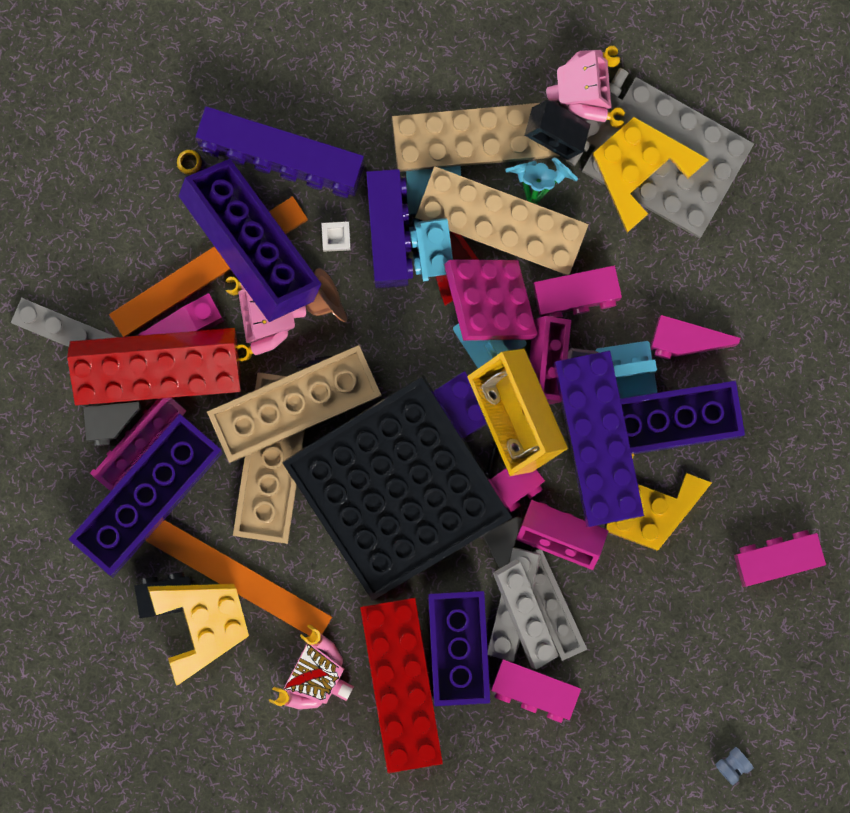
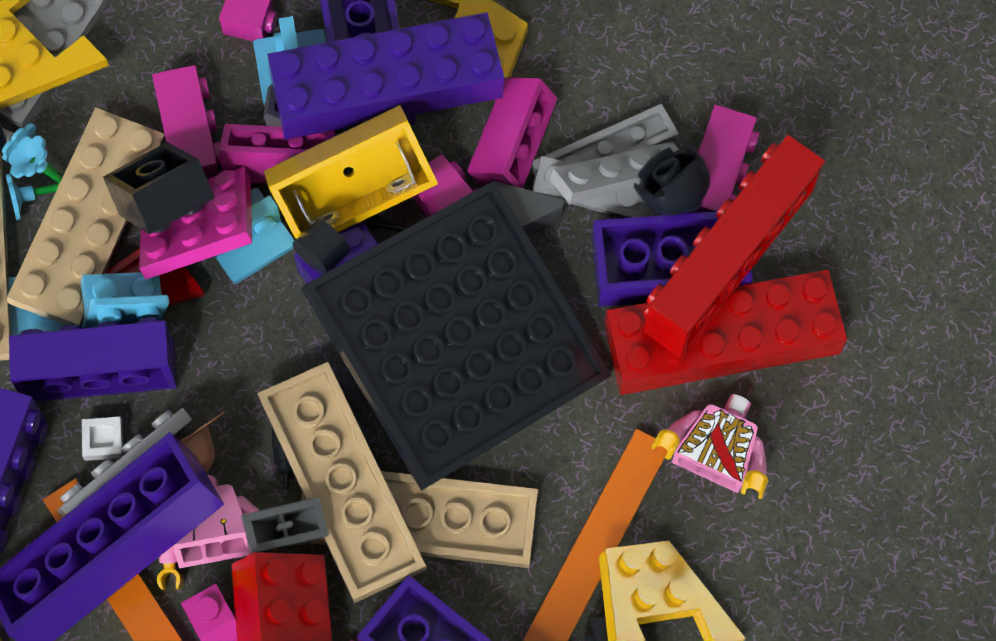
camera: 90 degrees left, 15 degrees down
(258, 363) = (284, 526): none -> dark grey slope
(320, 260) = (133, 449): none -> light grey plate
(450, 691) = (732, 245): none -> red brick
(461, 390) = (321, 246): none -> black piece
(510, 272) = (159, 188): none -> black brick
(511, 651) = (675, 181): none -> black cylinder

